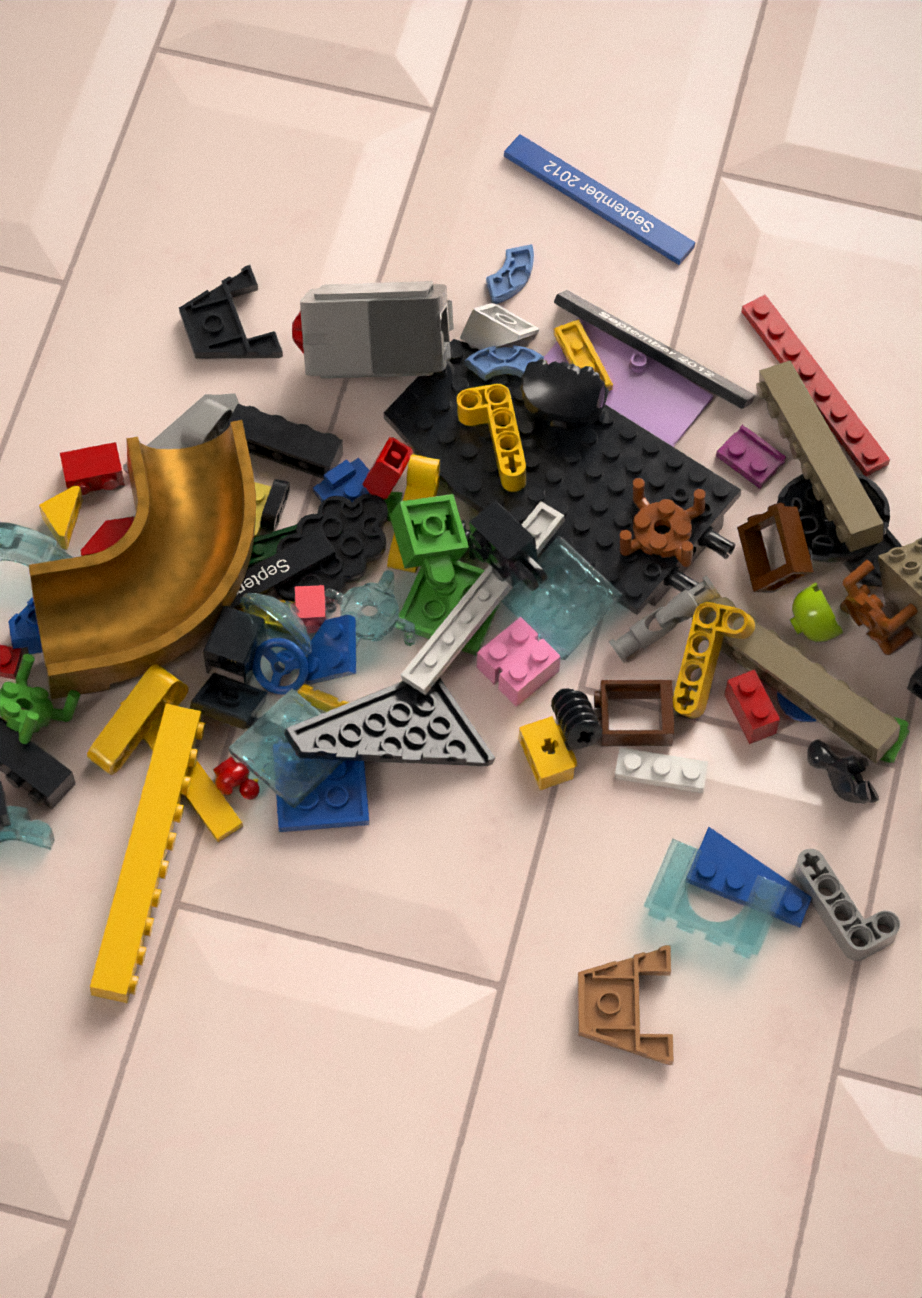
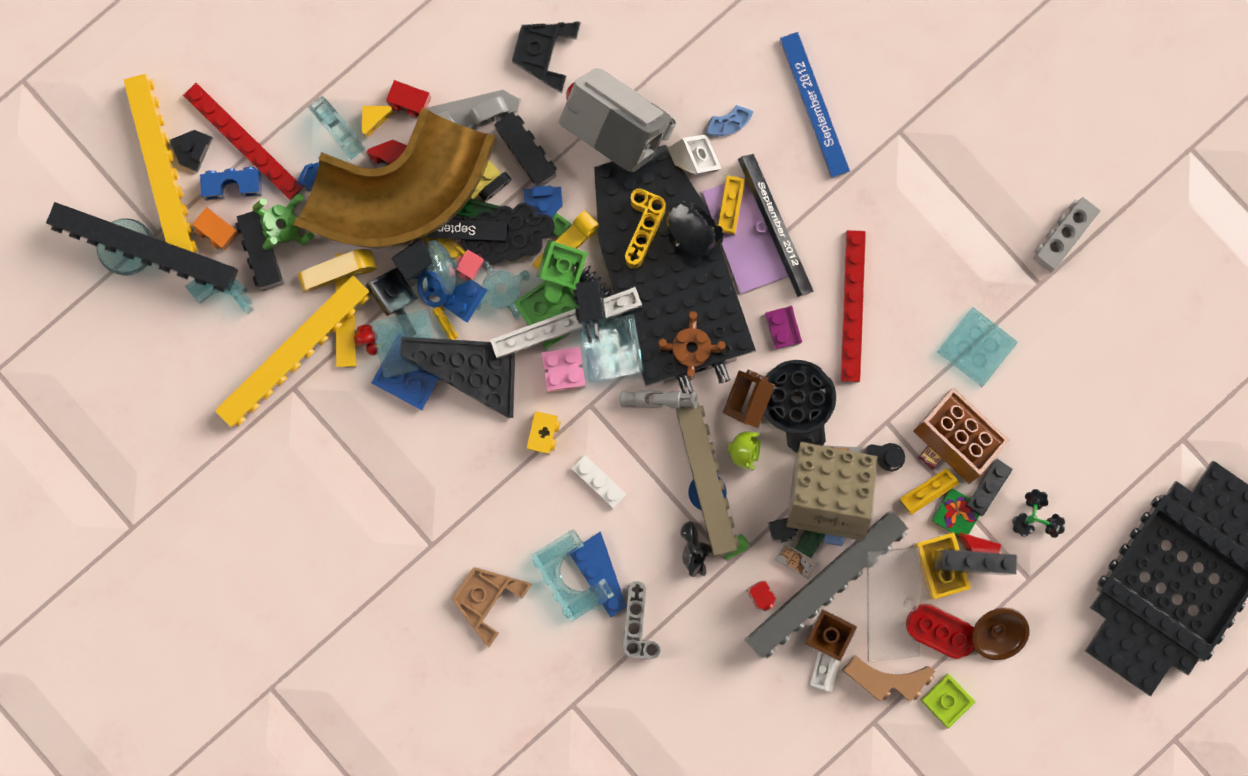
camera: 30 degrees right, 20 degrees up
(387, 468) = (568, 207): red brick -> none
(503, 360) = (681, 180): medium blue tile -> none
(576, 718) = (569, 425): black piece -> none
(636, 690) = (593, 421): reddish brown window -> none
(707, 660) = (661, 439): yellow beam -> none
(752, 706) = (672, 479): red brick -> none
(820, 456) = (816, 357): dark tan brick -> none
(869, 612) = (771, 459): dark orange plate -> none

